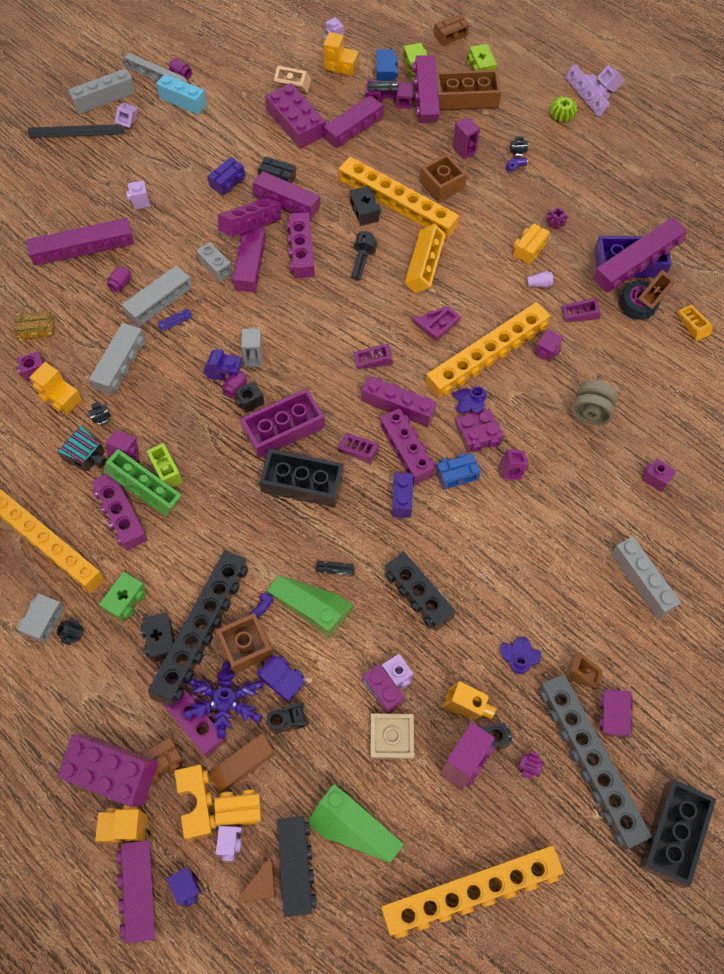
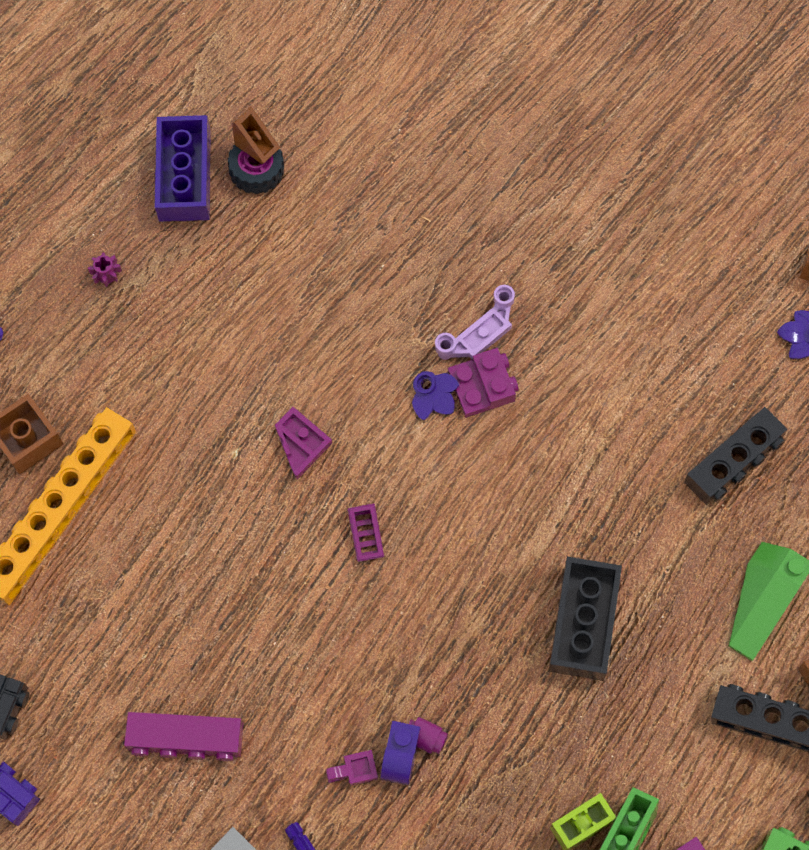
camera: 90 degrees left, 5 degrees up
(214, 261) = (190, 795): light grey brick -> none
(218, 342) = (357, 768): none -> magenta plate
(249, 216) = (113, 734): magenta brick -> none
(249, 390) = (449, 698): black brick -> none
(252, 347) = (366, 708): light grey brick -> none
(266, 602) = (779, 659): dark purple arm -> none
(283, 422) = (496, 653): magenta brick -> none
(289, 195) = (55, 685): magenta brick -> none
(301, 245) = (114, 650): magenta brick -> none
(335, 568) = (711, 569): black axle -> none
(361, 455) = (532, 525): magenta slope -> none
(364, 205) = (88, 560): black brick -> none
(364, 249) = (177, 554): black piece -> none
(392, 397) = (446, 490): magenta brick -> none
(402, 495) = (598, 480): dark purple brick -> none
(407, 446) = (518, 477): magenta brick -> none
(425, 258) = (187, 458): light orange brick -> none
(457, 471) = (552, 409): blue brick -> none
(513, 464) = (542, 335): magenta brick -> none
(517, 431) = (482, 332): none -> lavender plate
(525, 324) = (404, 439): light orange brick -> none
(531, 243) = (153, 306): light orange brick -> none
(541, 279) = (220, 294): lavender cone -> none
(548, 345) = (339, 287): magenta brick -> none
(588, 315) = (273, 222): magenta slope -> none
(595, 402) = (441, 227): dark tan wheel -> none
(639, 255) = (199, 152): magenta brick -> none
(645, 577) = (687, 184): light grey brick -> none
(658, 474) = (539, 159): magenta brick -> none
(700, 331) = (290, 88): light orange slope -> none

